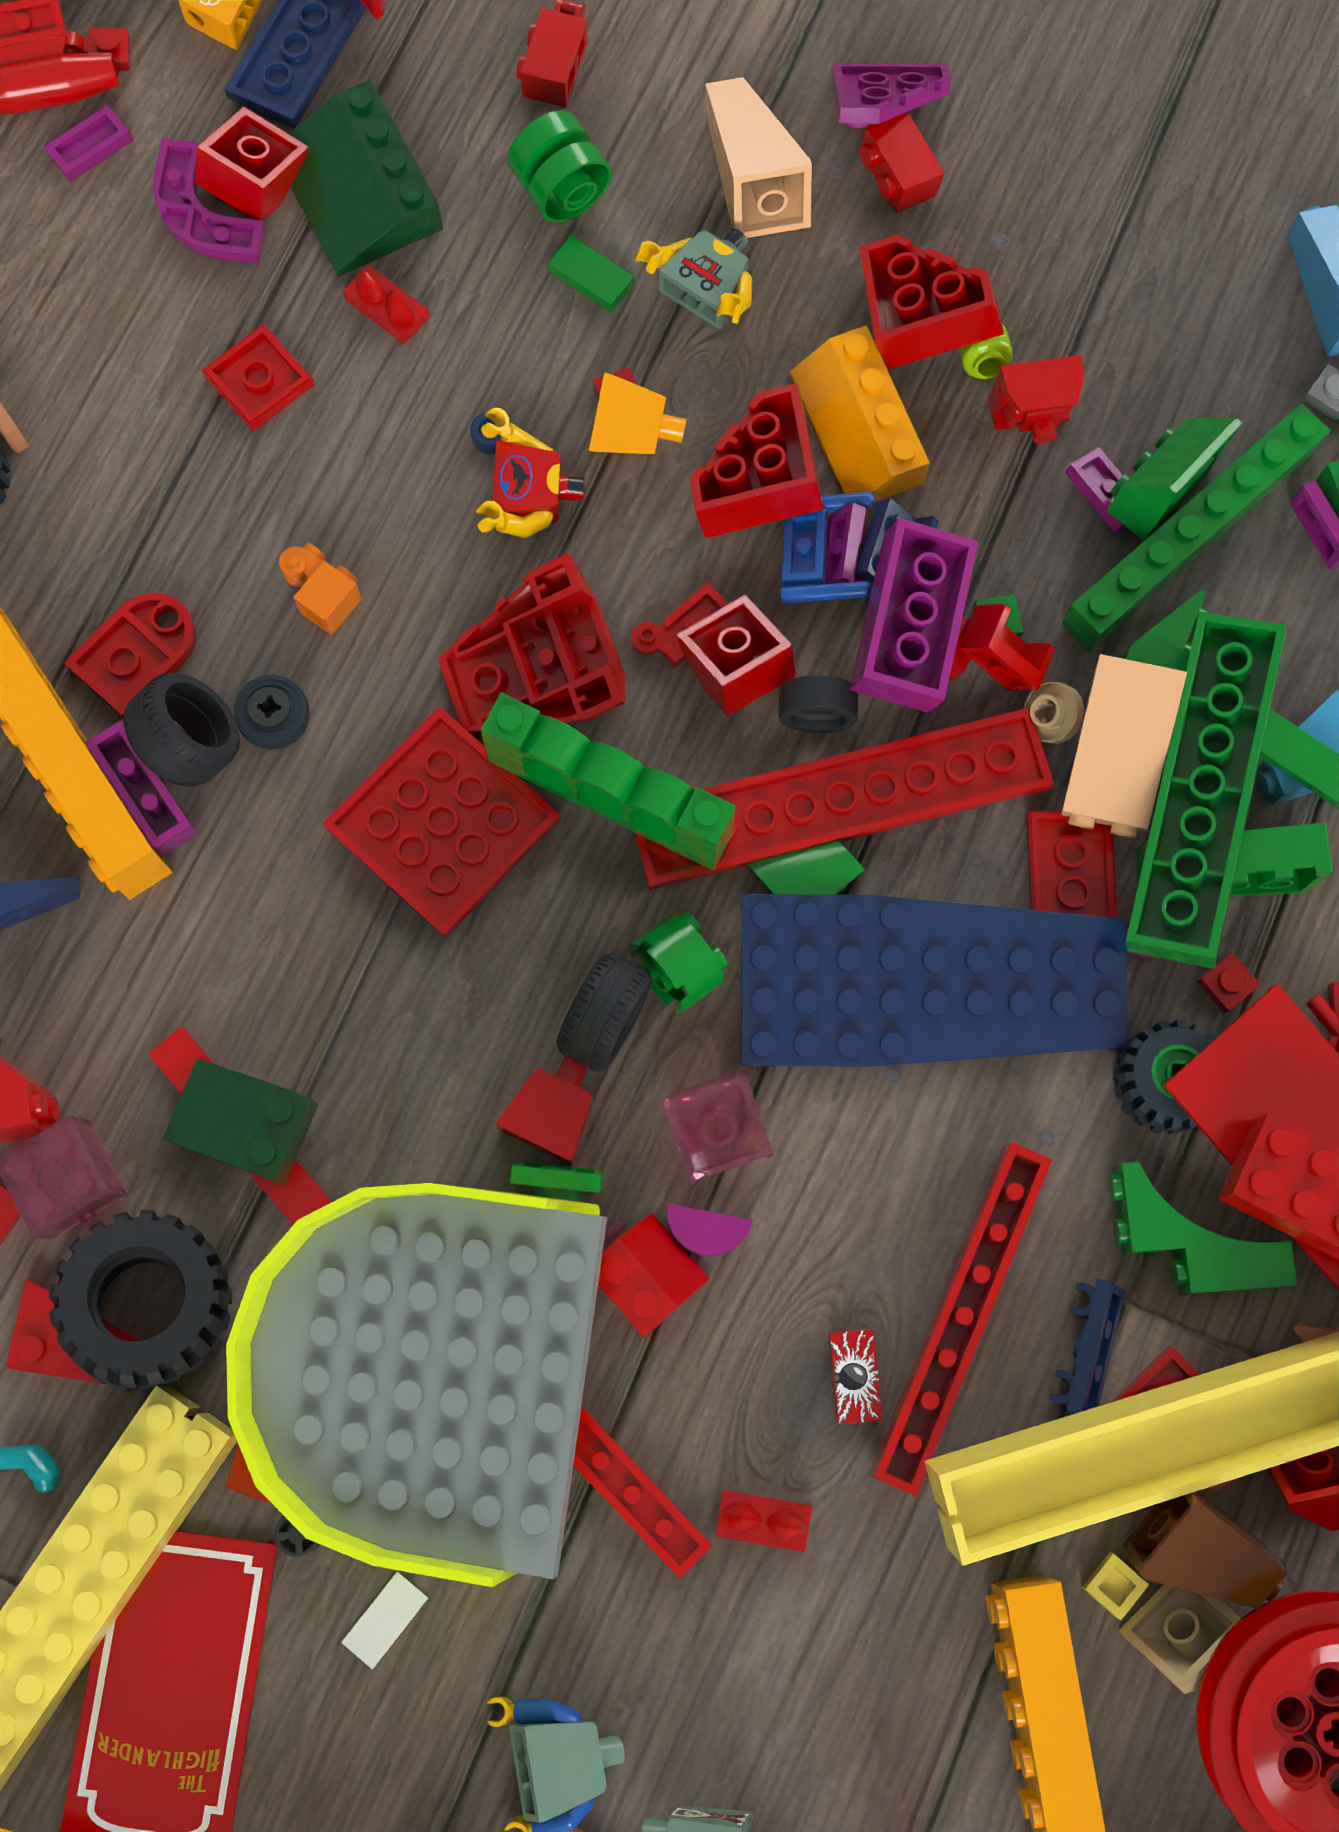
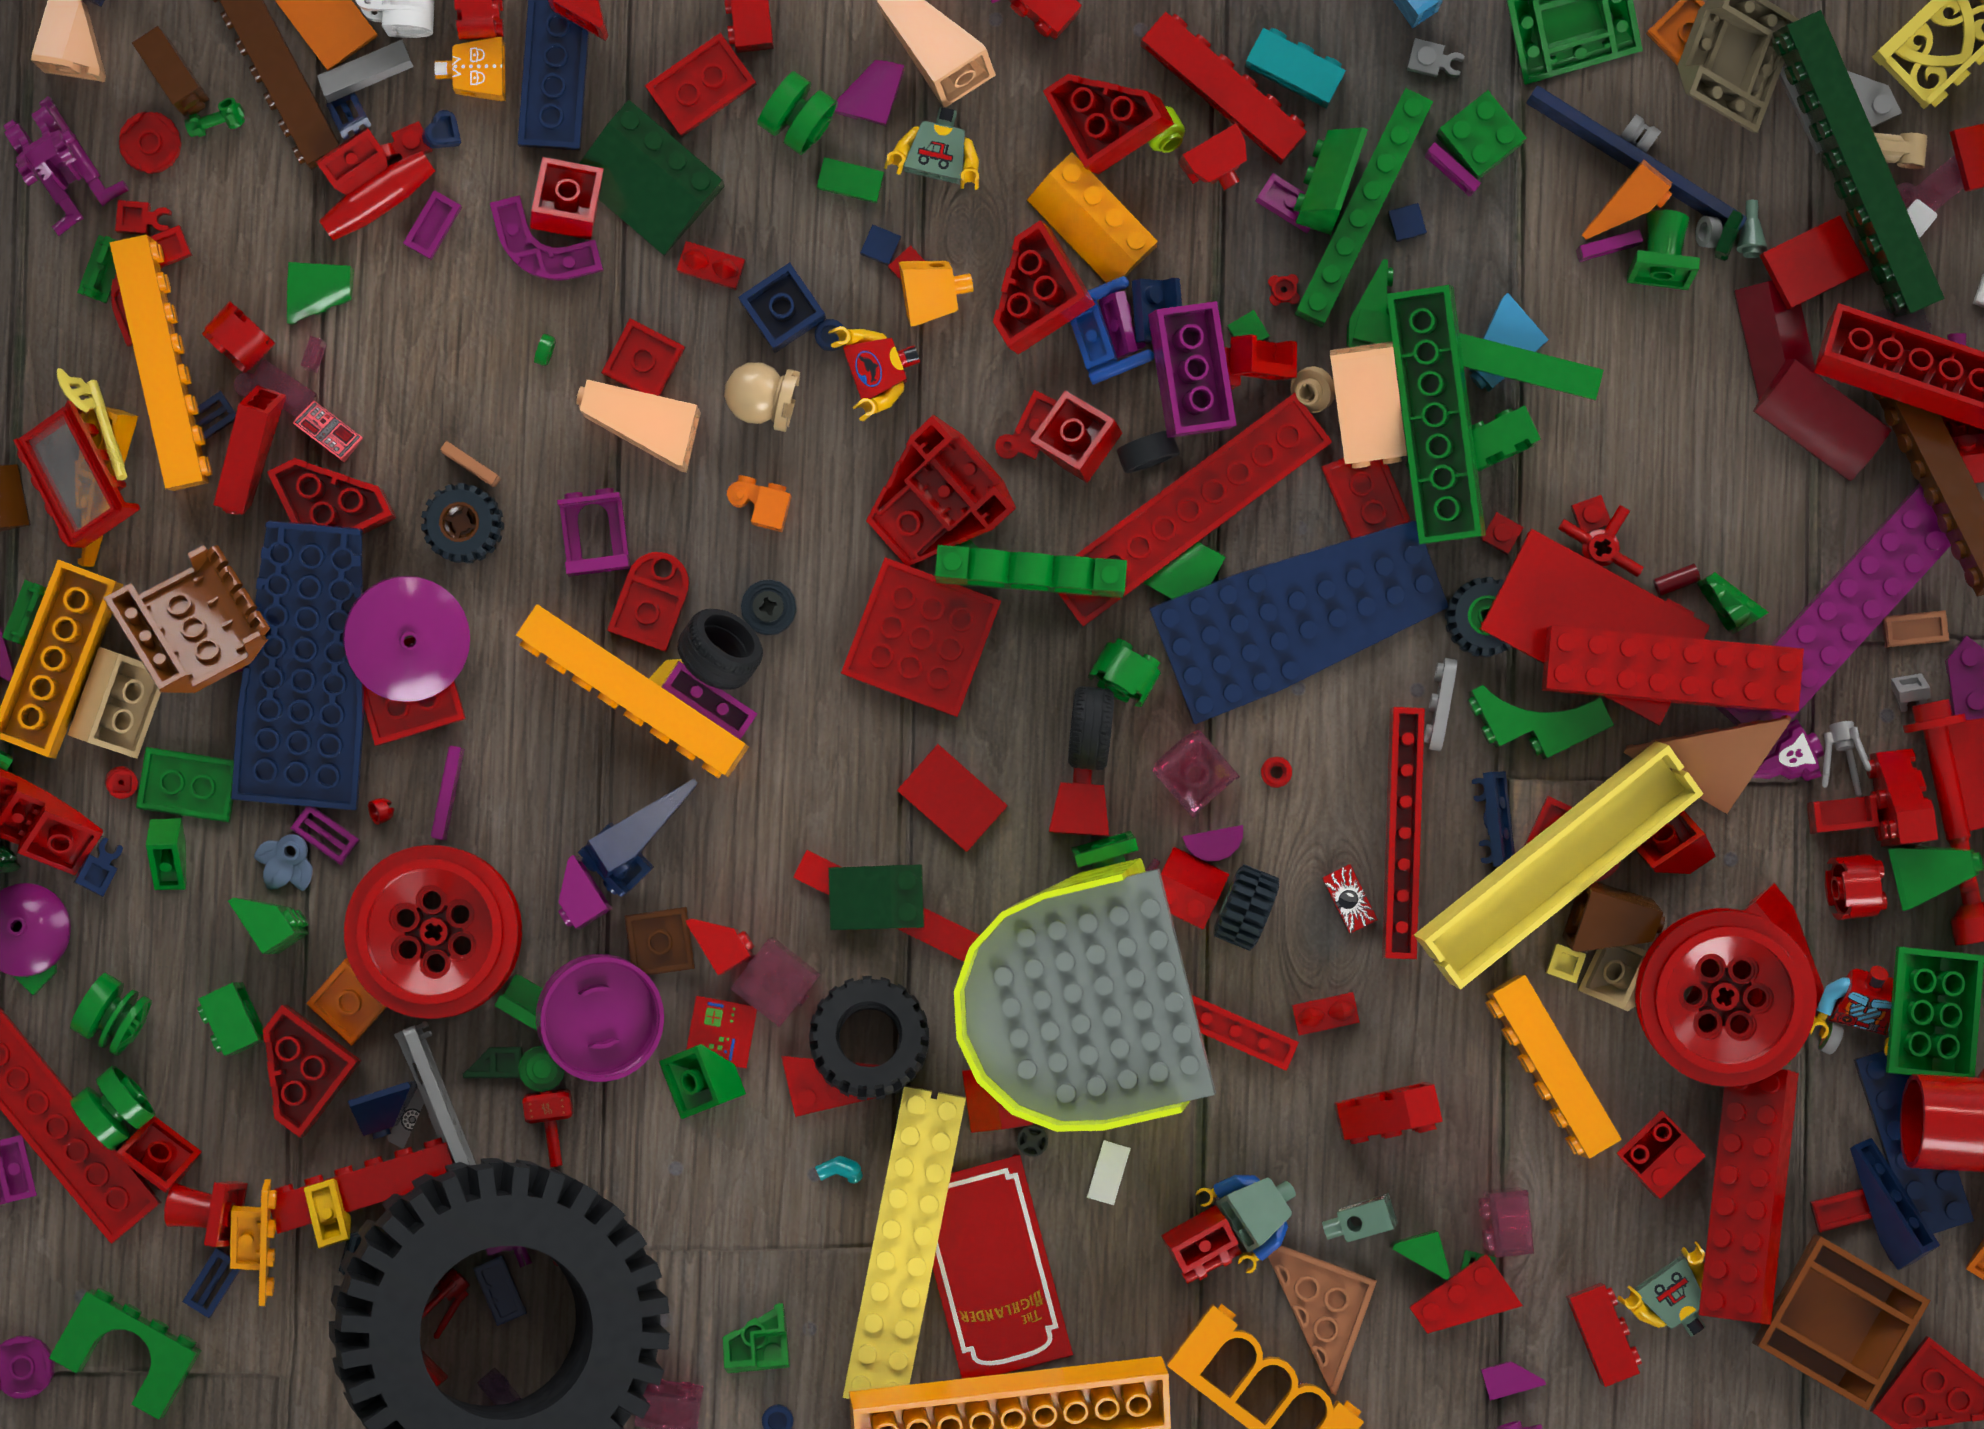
camera: 20 degrees left, 10 degrees up
(93, 506) = (570, 509): none -> magenta panel
(146, 318) = (545, 350): none -> green tile
(147, 48) = (442, 131): none -> dark blue tile
(227, 436) = (648, 421): none -> light nougat slope
(376, 459) = (760, 394): none -> tan tile
(394, 1036) = (952, 798): none -> red tile
(444, 372) = (782, 307): none -> dark blue brick
(463, 107) = (700, 85): none -> red plate
(464, 1779) = (1202, 1244): none -> red brick
(594, 355) = (880, 245): none -> dark blue tile
(659, 189) = (872, 93): none -> magenta slope
(713, 1330) = (1246, 907): none -> black wheel
(799, 1701) = (1389, 1113): none -> red brick
(827, 1156) = (1286, 772): none -> red plate
(1060, 575) = (1290, 283): none -> red plate
(1072, 1166) = (1440, 703): none -> light grey plate
(1074, 326) = (1223, 87): none -> red brick
(1171, 341) = (1295, 67): none -> teal brick
(1242, 567) = (1407, 222): none -> dark blue tile

